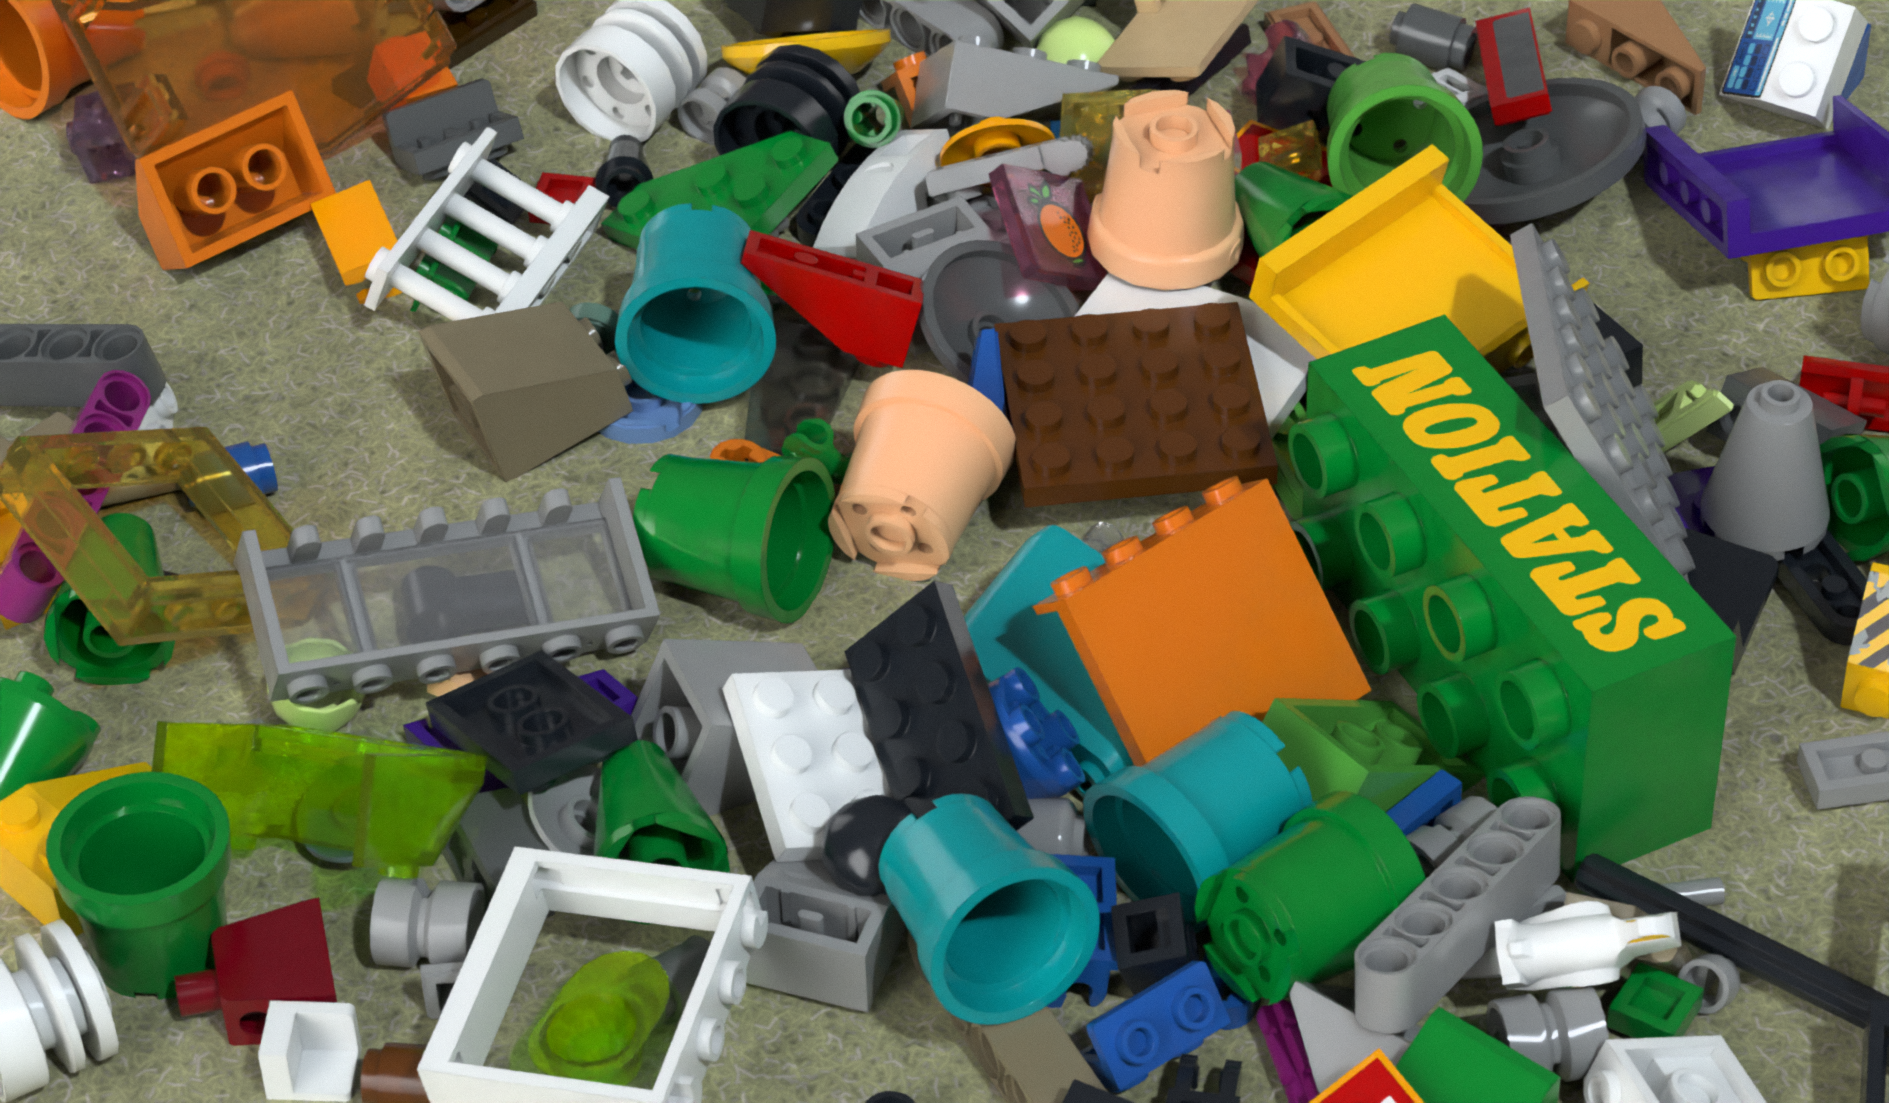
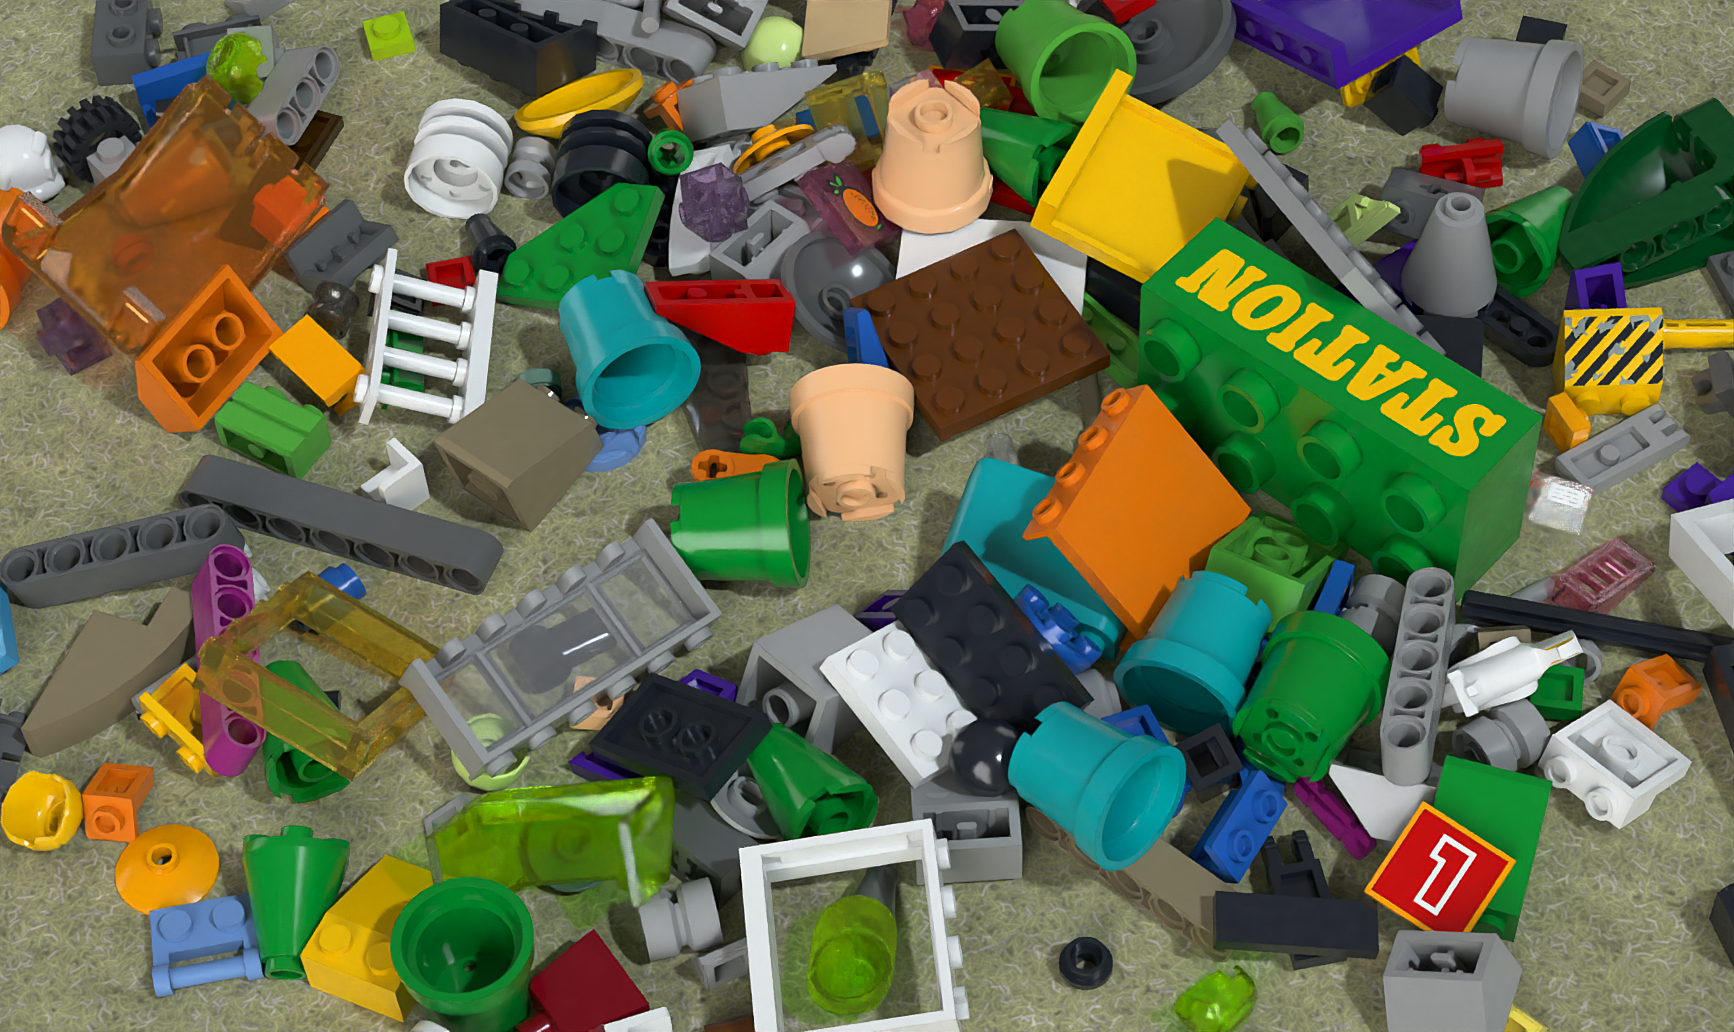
camera: 20 degrees left, 10 degrees up
(271, 292) = (273, 430): none -> bright green brick
(297, 410) = (345, 524): none -> dark grey beam
(377, 388) = (401, 482): none -> white panel
(406, 188) = (333, 308): none -> clear smoke wheel
(882, 174) = (713, 203): none -> clear purple brick
(1646, 291) = (1278, 125): none -> bright green cone
(1744, 892) = (1569, 590): none -> clear pink slope
(1766, 789) = (1557, 502): none -> clear tile
(1788, 1038) = (1655, 688): none -> orange bracket
(1819, 296) = (1403, 96): none -> black brick
(1834, 708) = (1566, 422): none -> light orange plate

